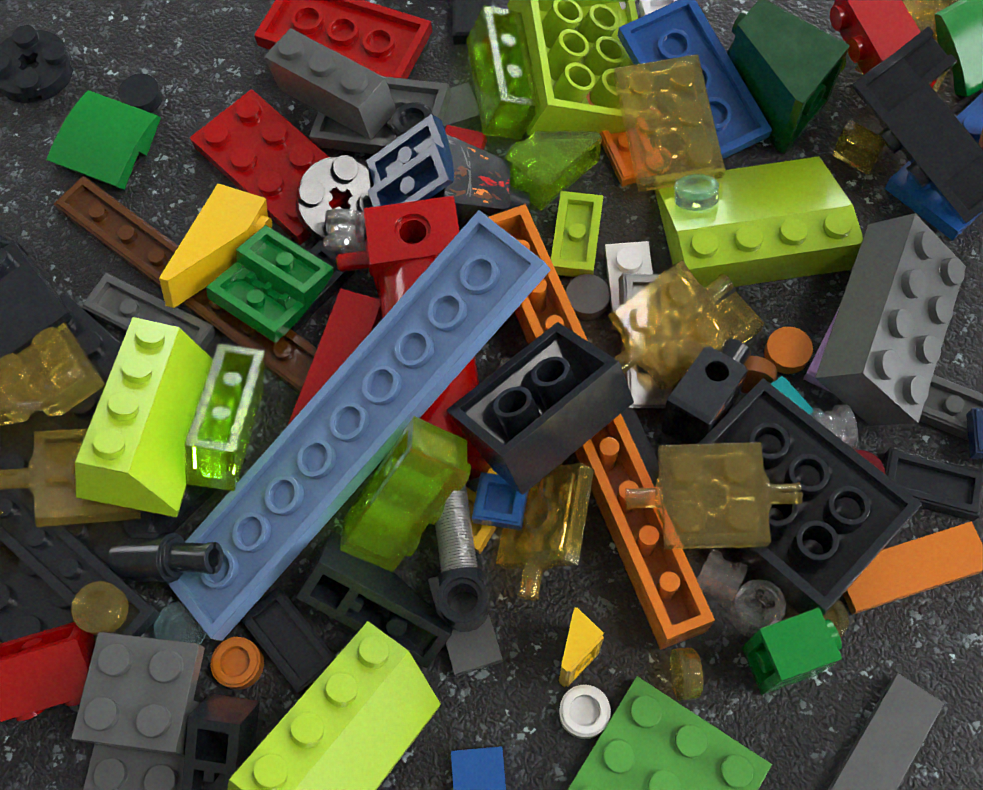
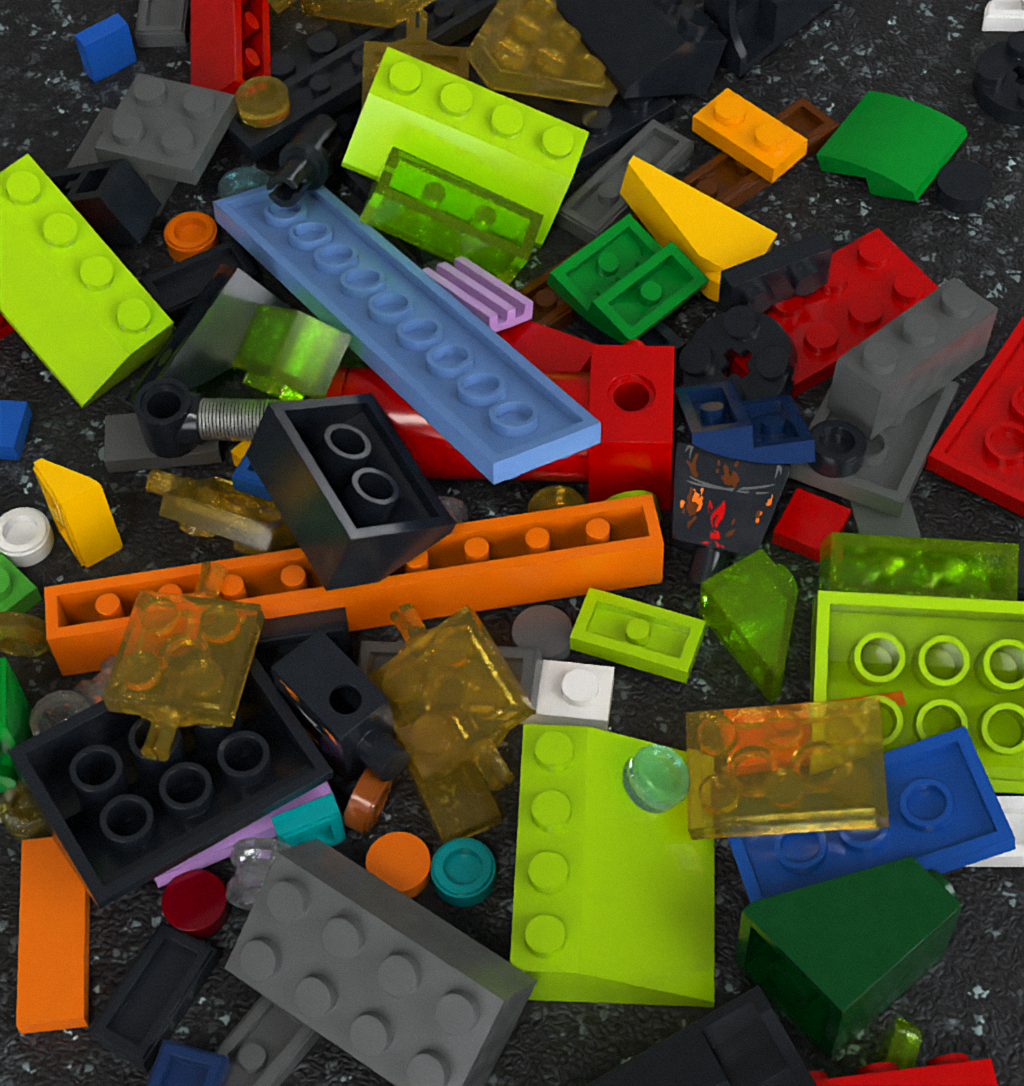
camera: 100 degrees right, 10 degrees down
(102, 228) = (749, 135): none -> light orange plate
(257, 168) = (777, 275): none -> black plate
(296, 382) = (483, 293): none -> lavender tile
(344, 231) = (689, 349): clear wheel -> none
(779, 309) = (463, 872): none -> teal tile

